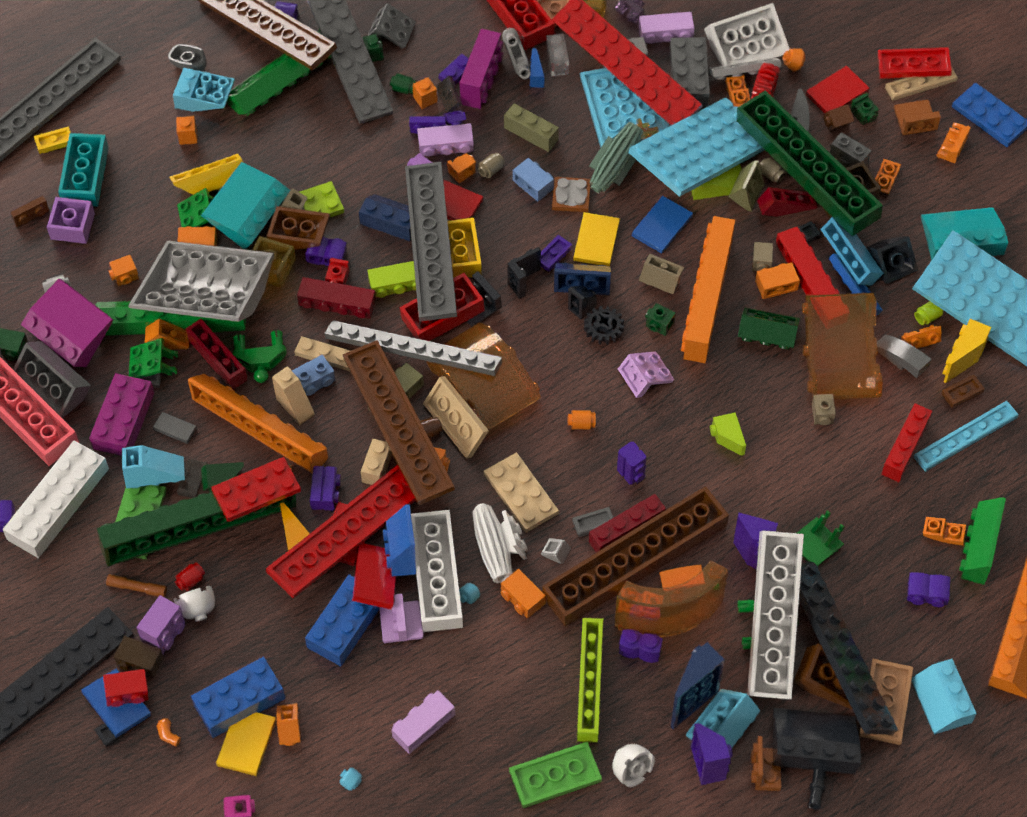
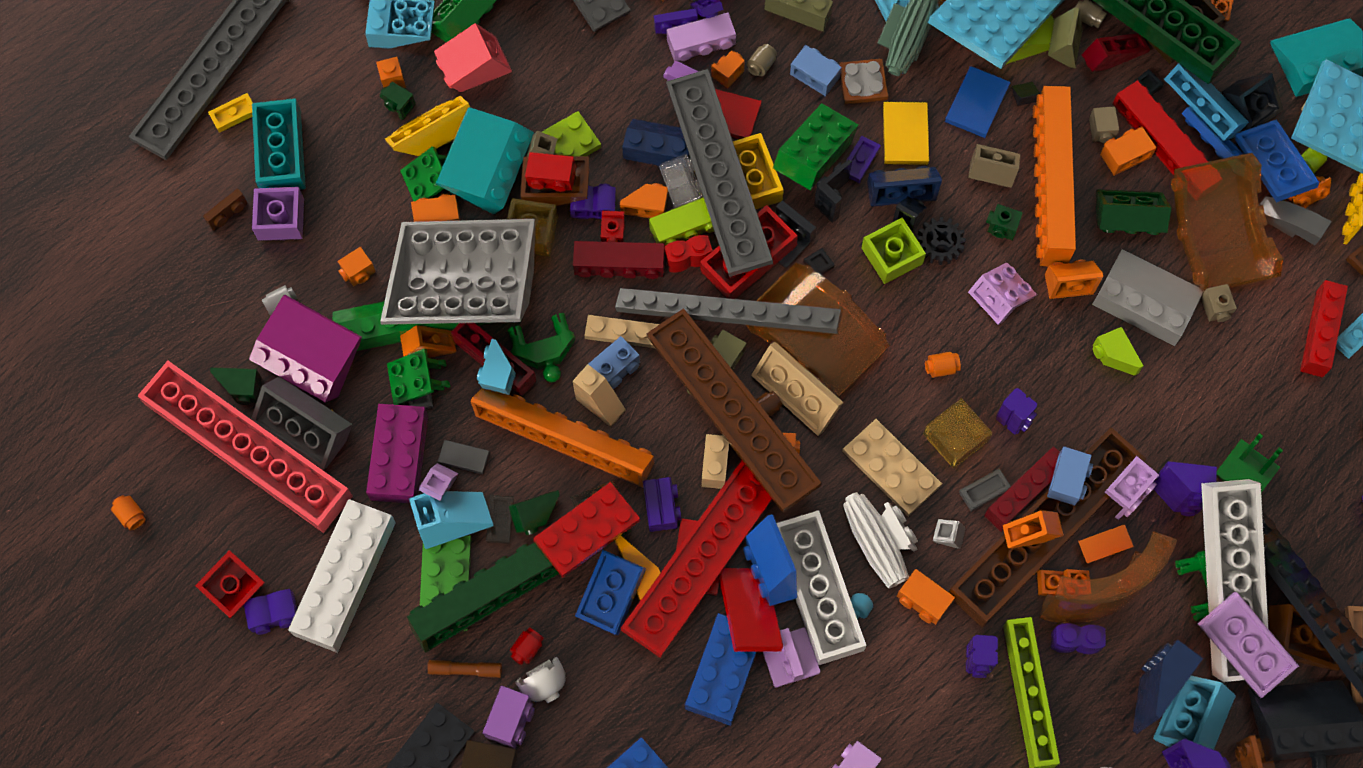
camera: 10 degrees left, 10 degrees up
(148, 438) = (438, 481): none -> lavender slope
(187, 150) = (397, 99): none -> dark green brick
(214, 361) = (497, 371): none -> medium azure slope
(255, 128) = (471, 59): none -> coral slope
(266, 545) = (610, 592): none -> blue tile
(294, 219) = (550, 171): none -> red brick
(369, 257) = (646, 201): none -> orange slope
(389, 302) = (688, 253): none -> red brick
(399, 244) = (680, 180): none -> clear brick
(500, 326) = (819, 262): none -> black tile
(516, 234) = (815, 146): none -> green brick
(556, 642) = (981, 655): none -> dark purple brick
(561, 325) = (893, 250): none -> lime brick
(580, 473) = (957, 433): none -> clear yellow brick
(619, 550) = (1033, 529): none -> orange slope
(658, 514) = (1070, 475): none -> medium blue brick
(701, 223) = (1025, 93): none -> black slope
(705, 371) = (1072, 279): none -> orange slope
(711, 535) = (1132, 486): none -> lavender bracket
(765, 396) = (1148, 297): none -> light grey slope
(774, 667) = (1248, 644): none -> lavender tile
(898, 306) = (1282, 167): none -> blue plate

